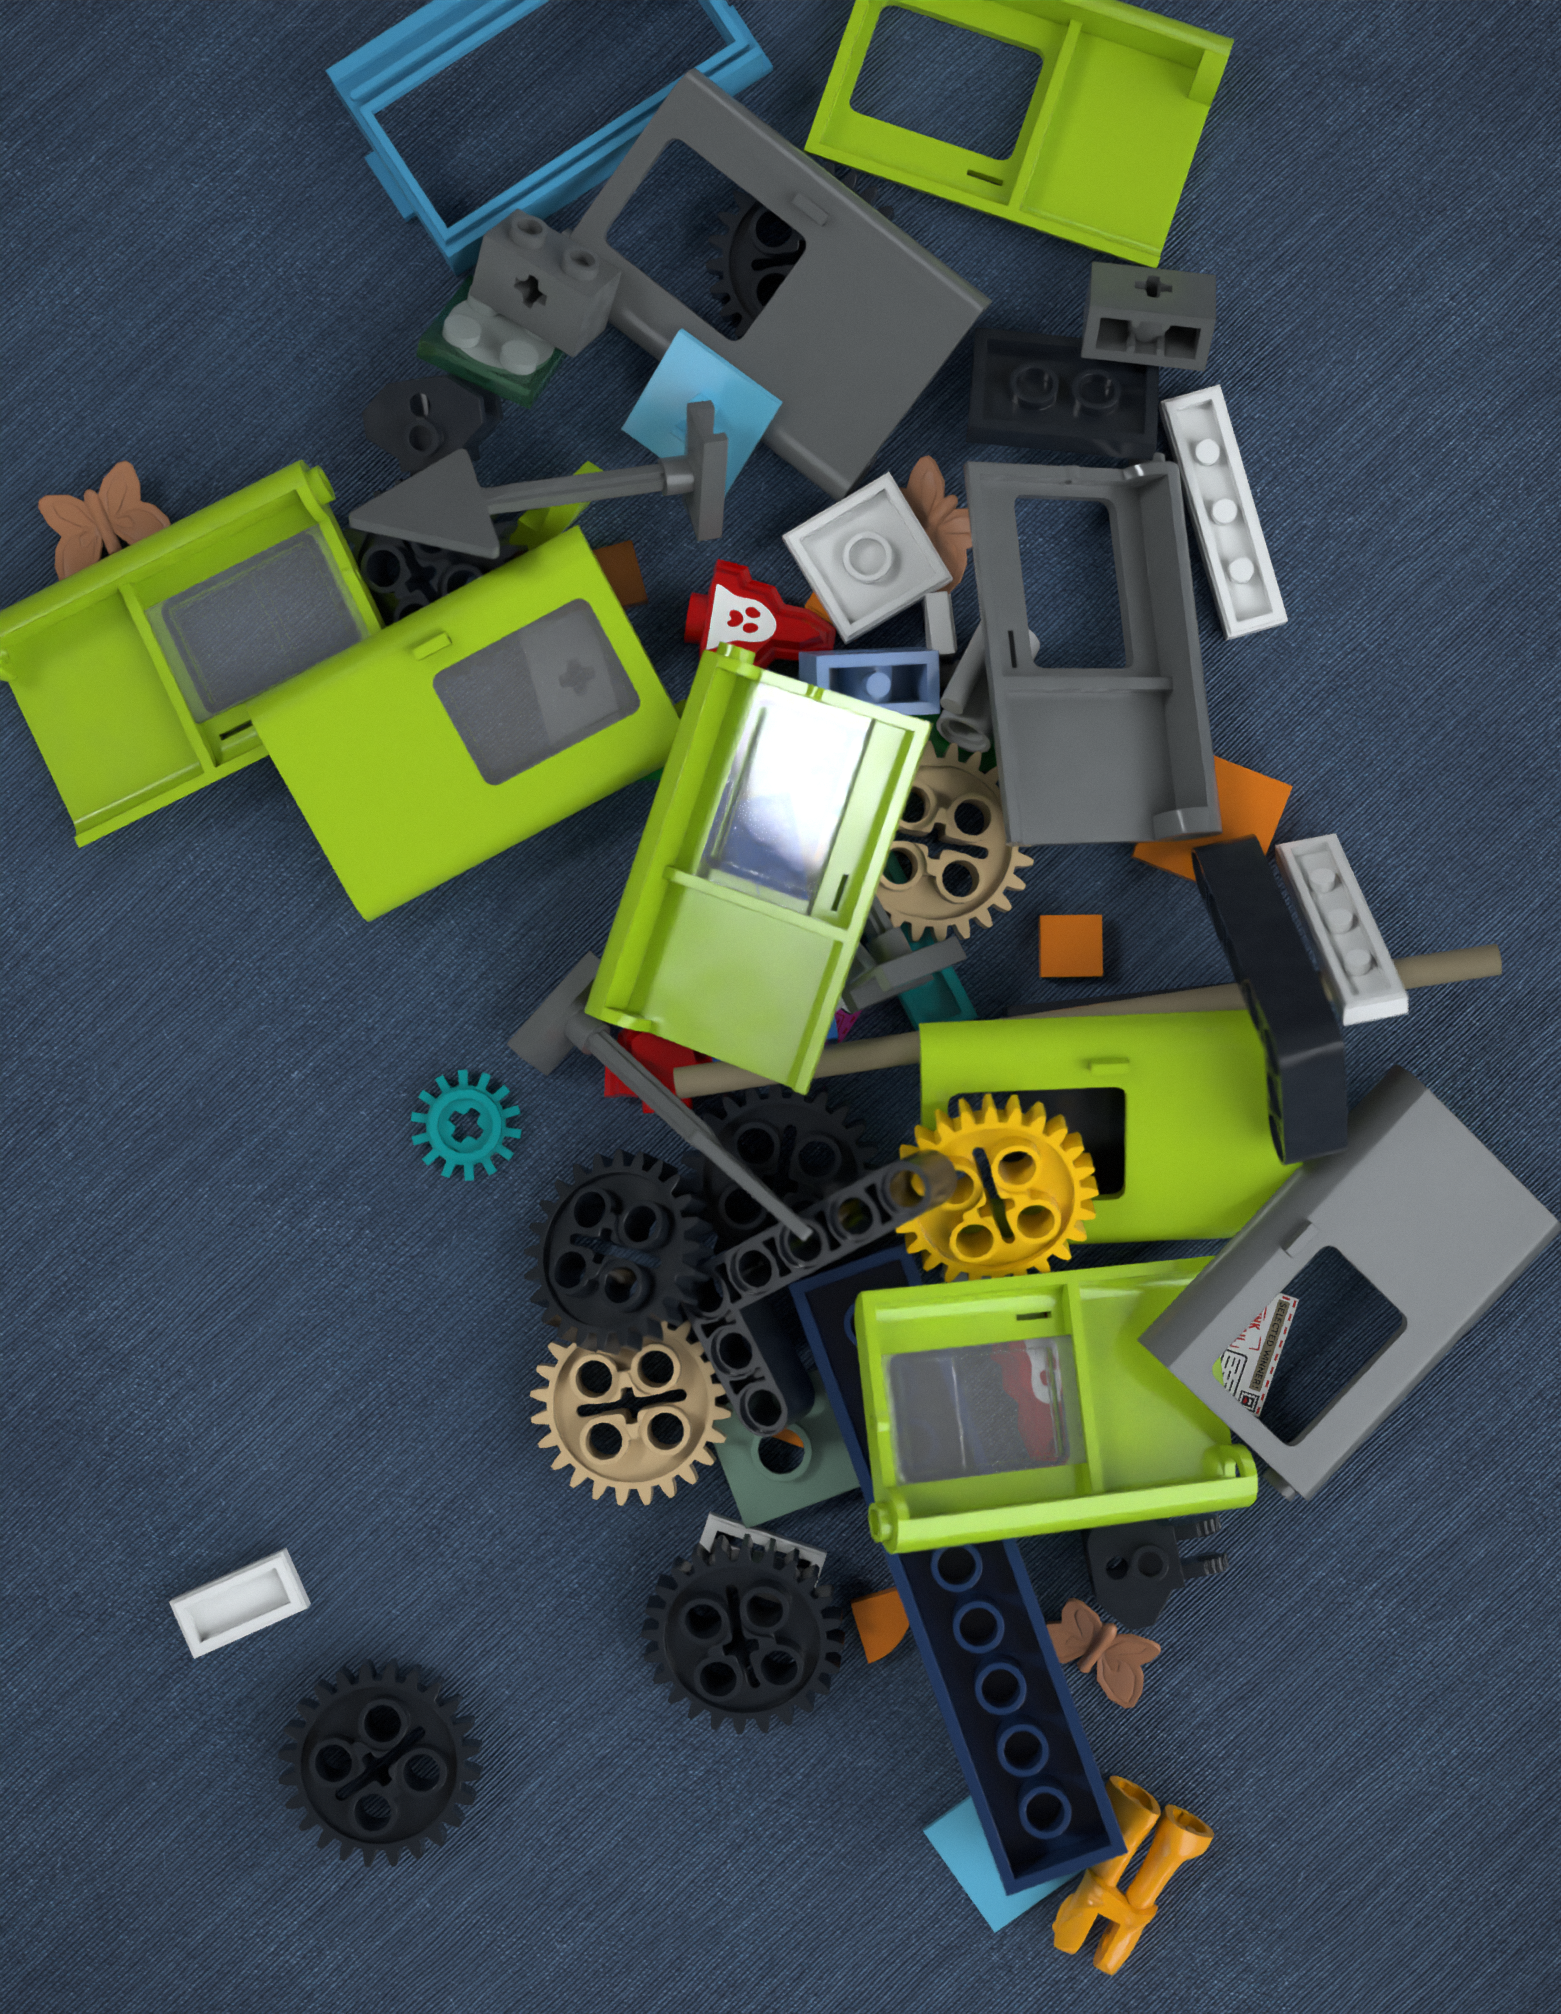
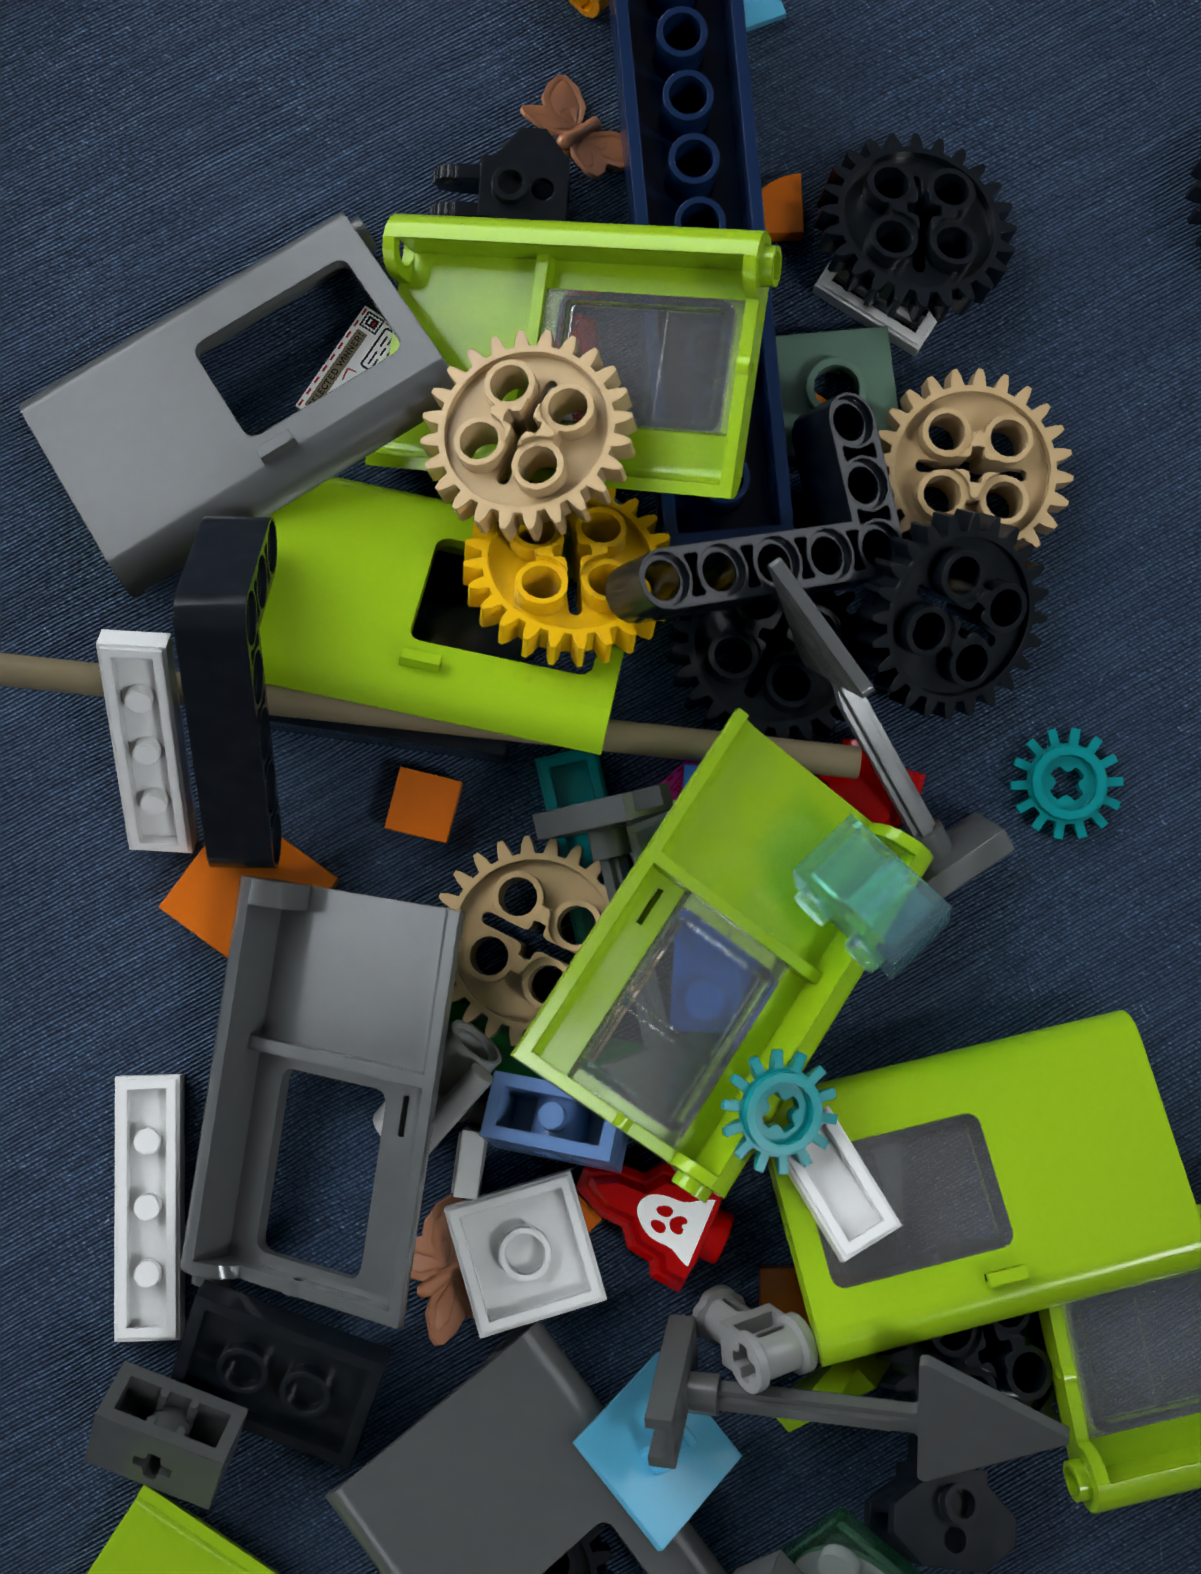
camera: 175 degrees left, 5 degrees down
(606, 689) = (842, 1194): none -> white tile
(640, 953) = (870, 898): none -> clear light blue brick
(642, 532) = (755, 1341): none -> light grey connector
(650, 738) = (803, 1117): none -> teal gear
(1120, 1316) = (478, 416): none -> tan gear

